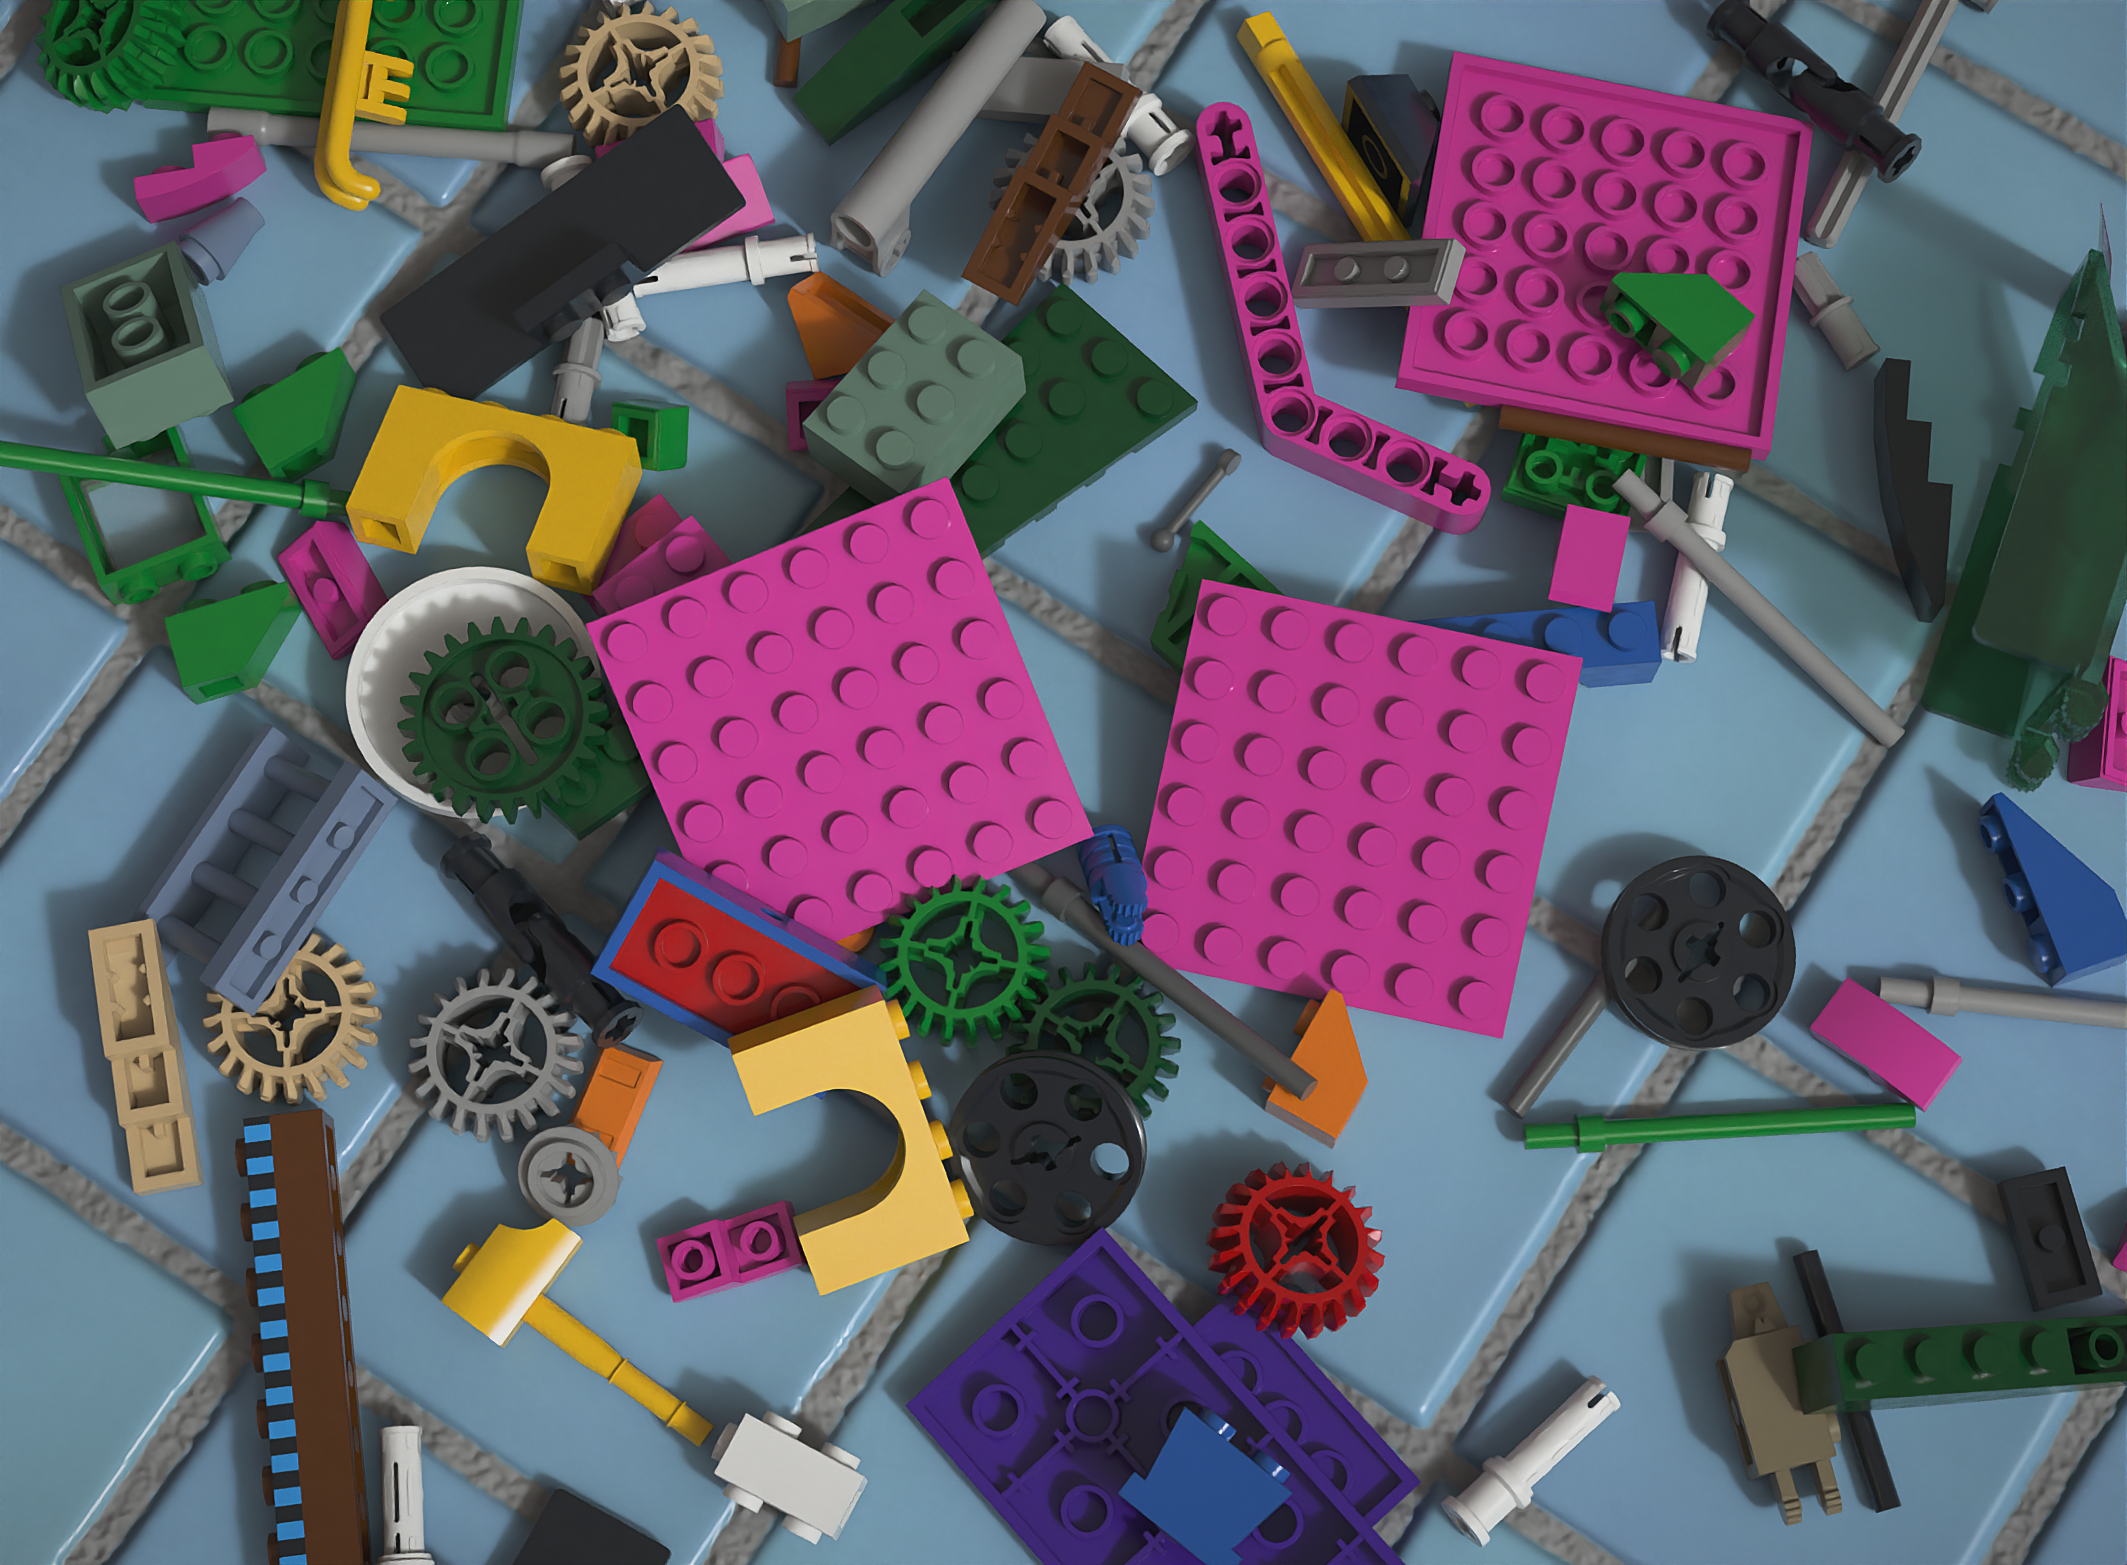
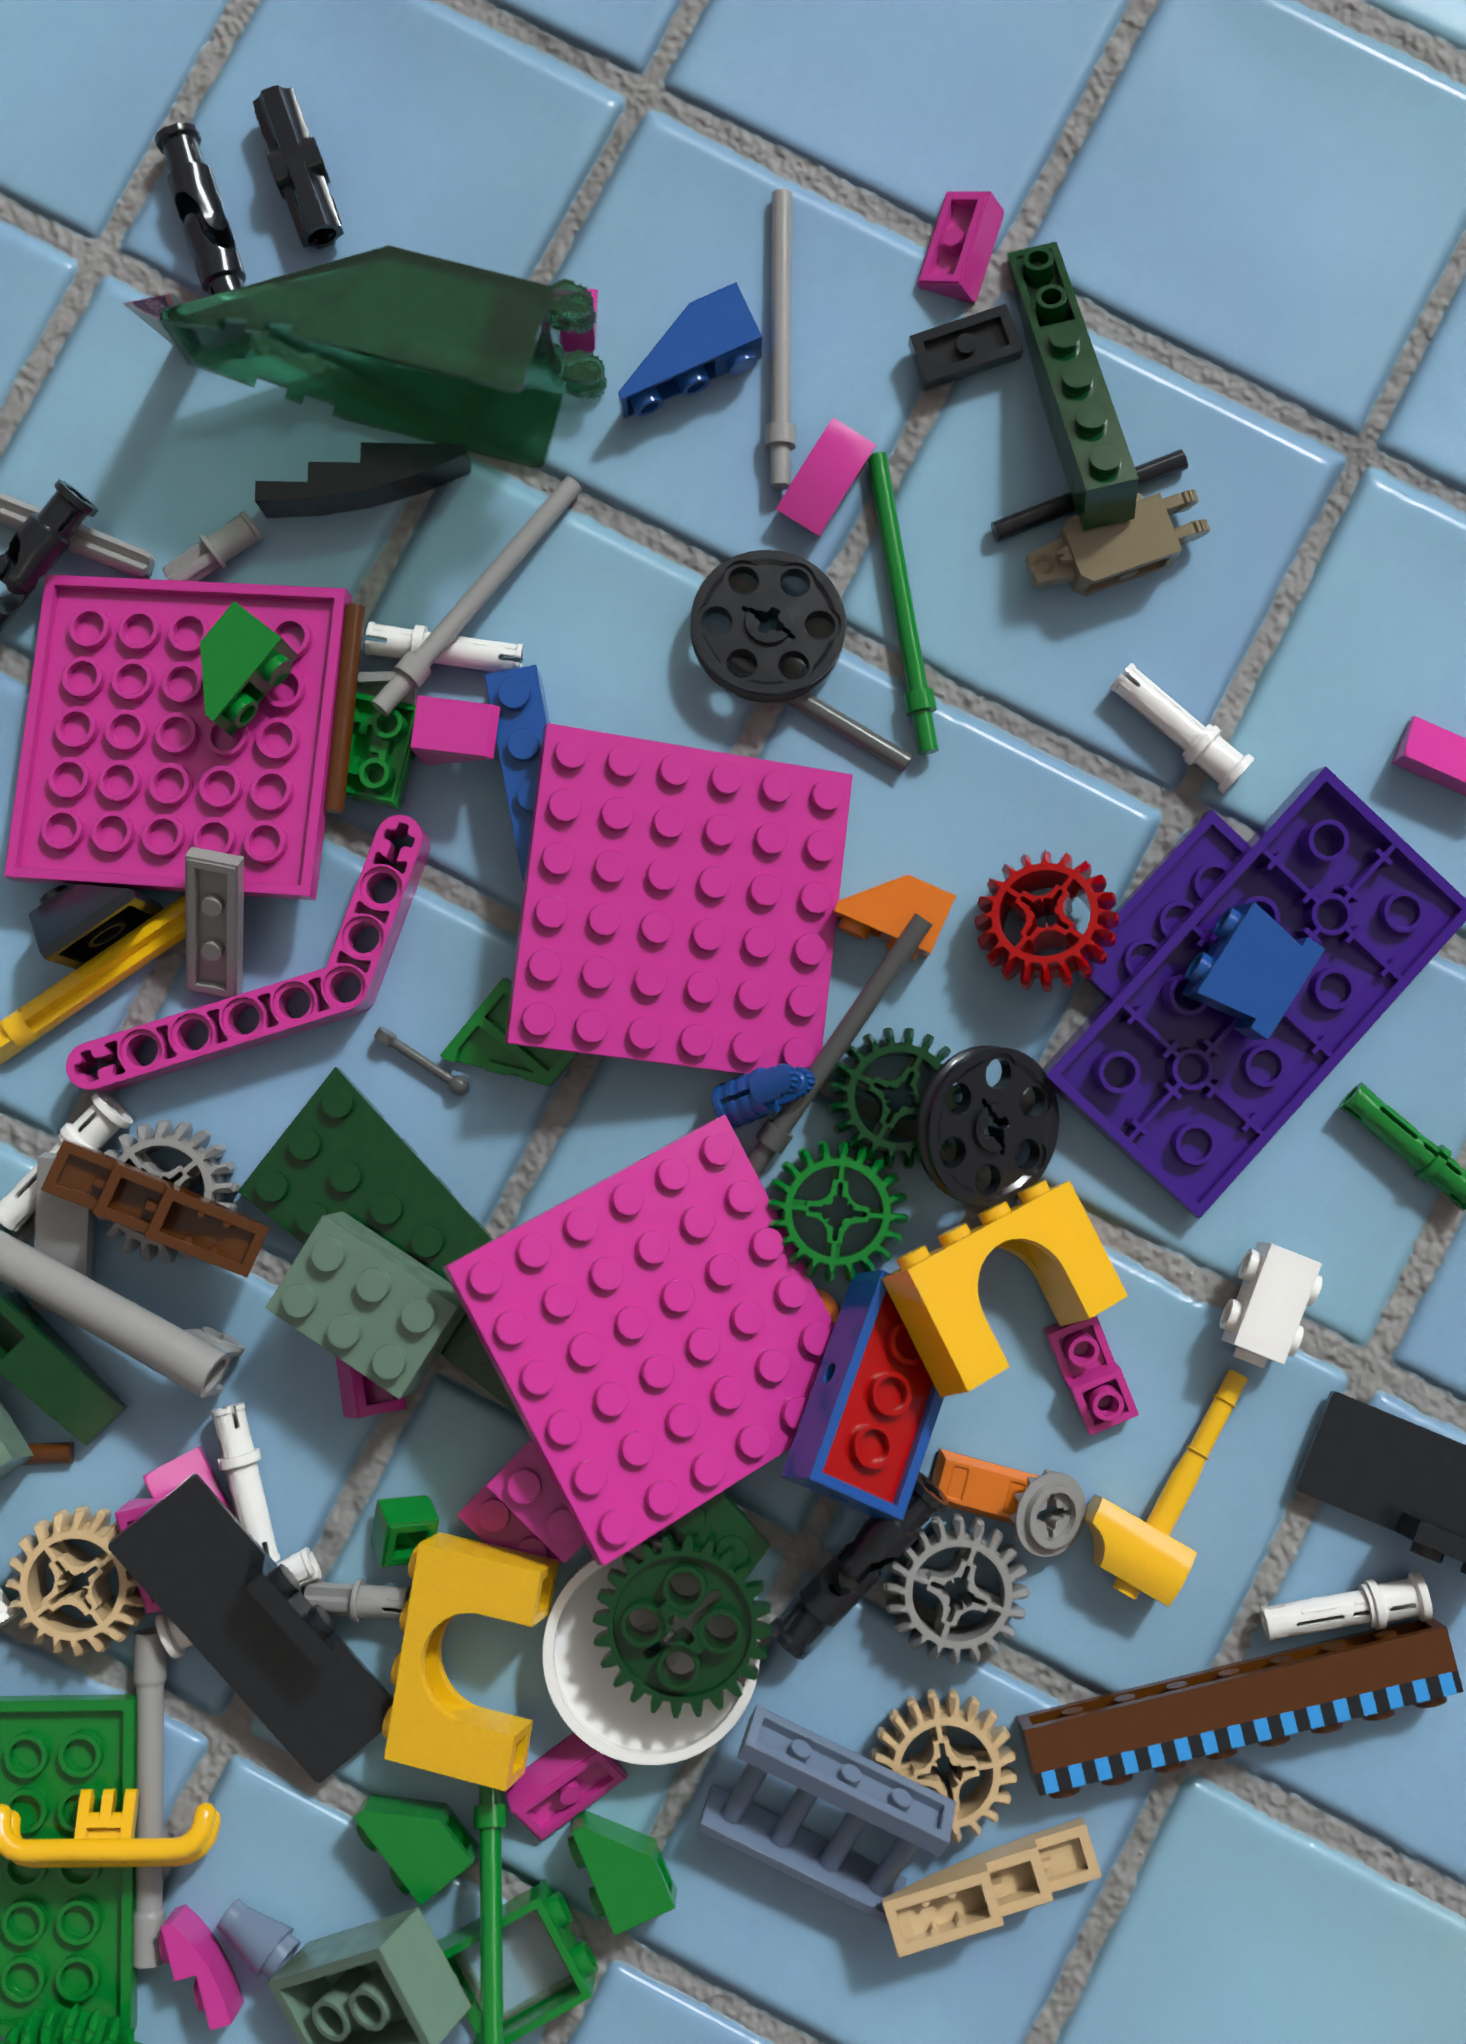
camera: 95 degrees left, 10 degrees up
(834, 324) = (292, 1379): orange slope -> none

